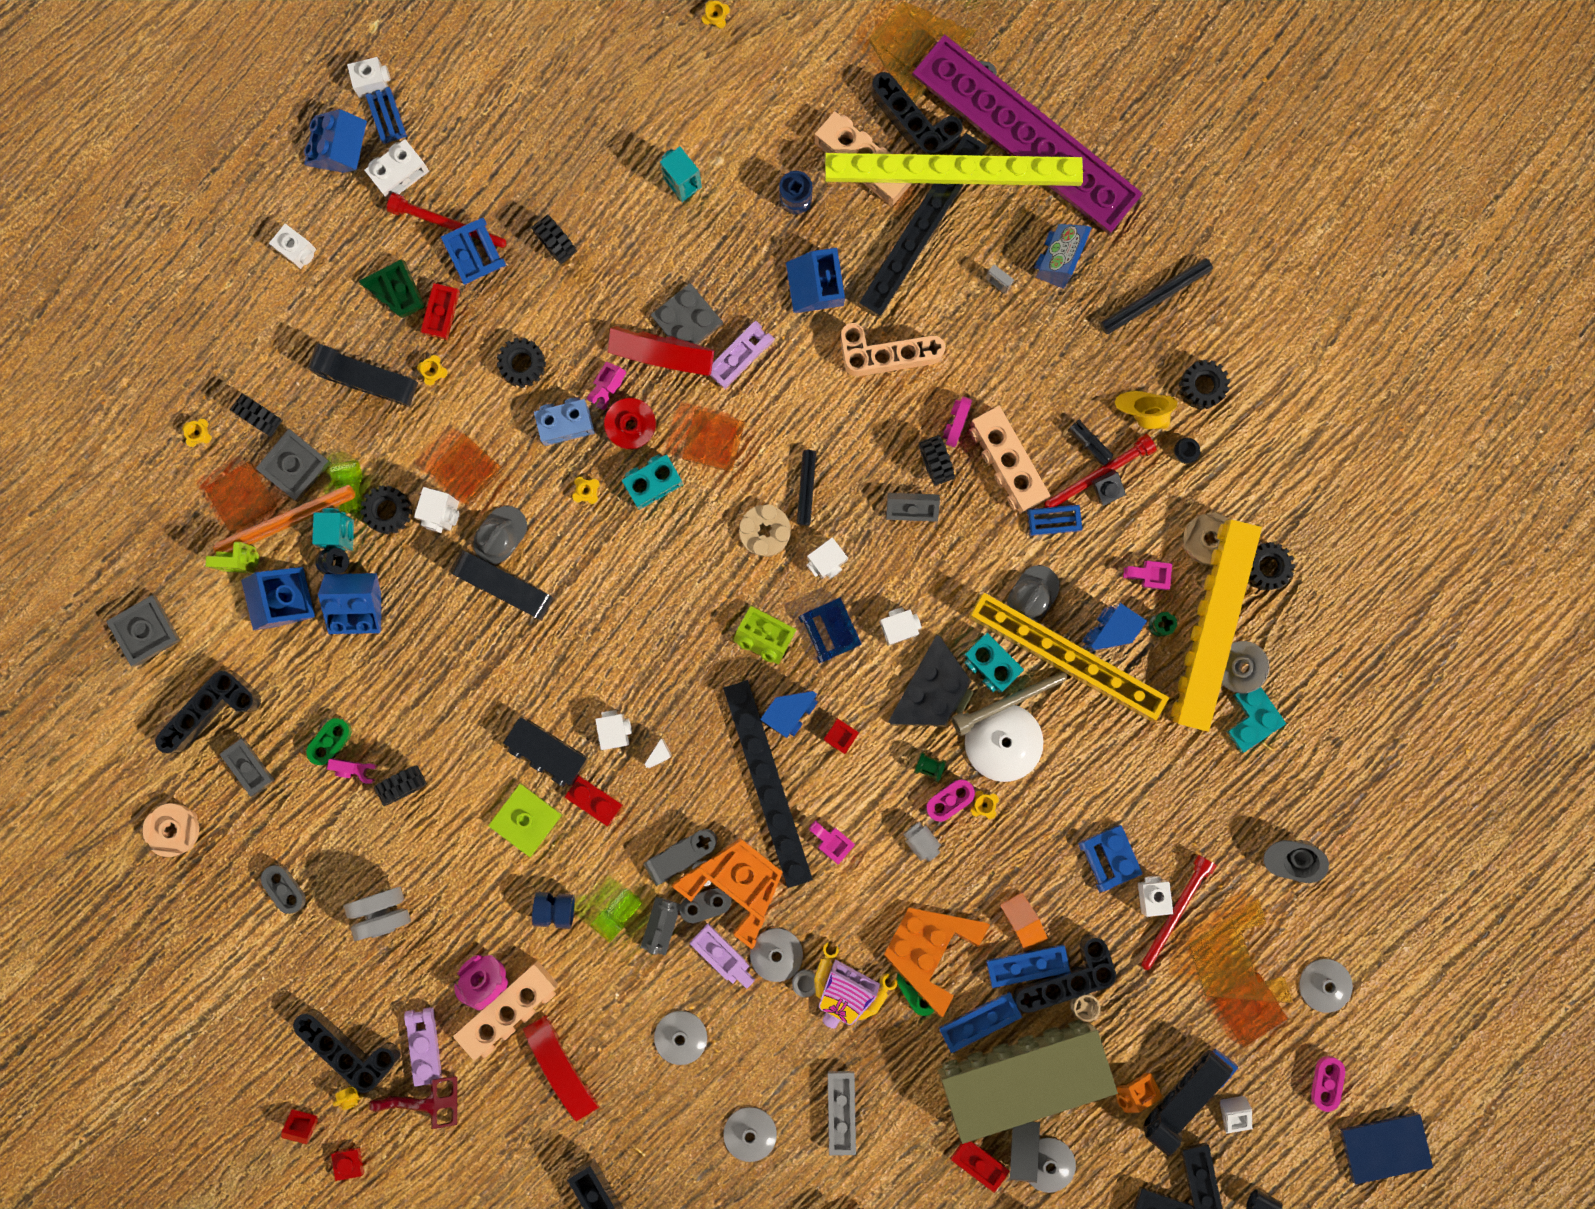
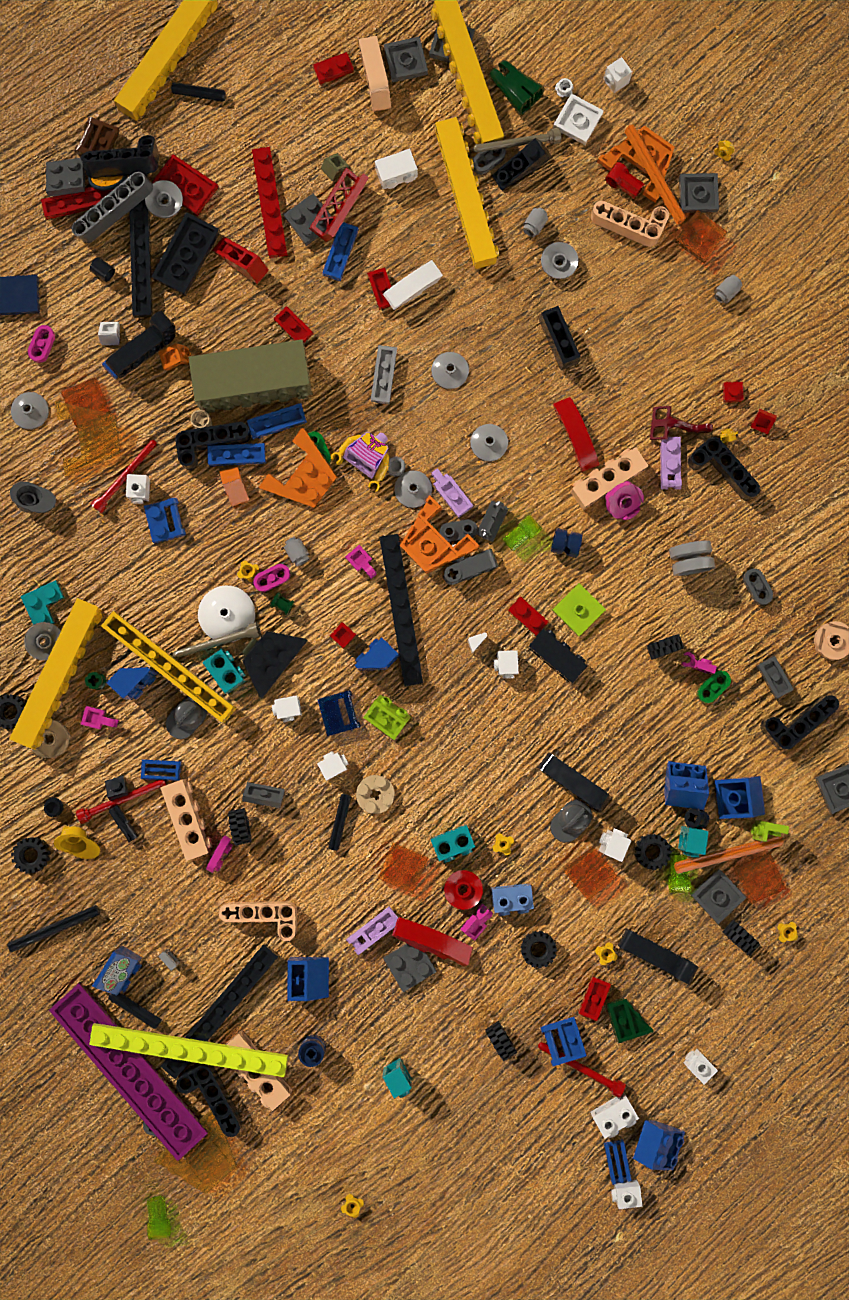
camera: 170 degrees left, 0 degrees up
(1025, 1152) = (260, 328): dark grey slope -> none
(1031, 210) = (135, 1010): none -> black axle
(1056, 1152) = (249, 327): light grey dish -> none

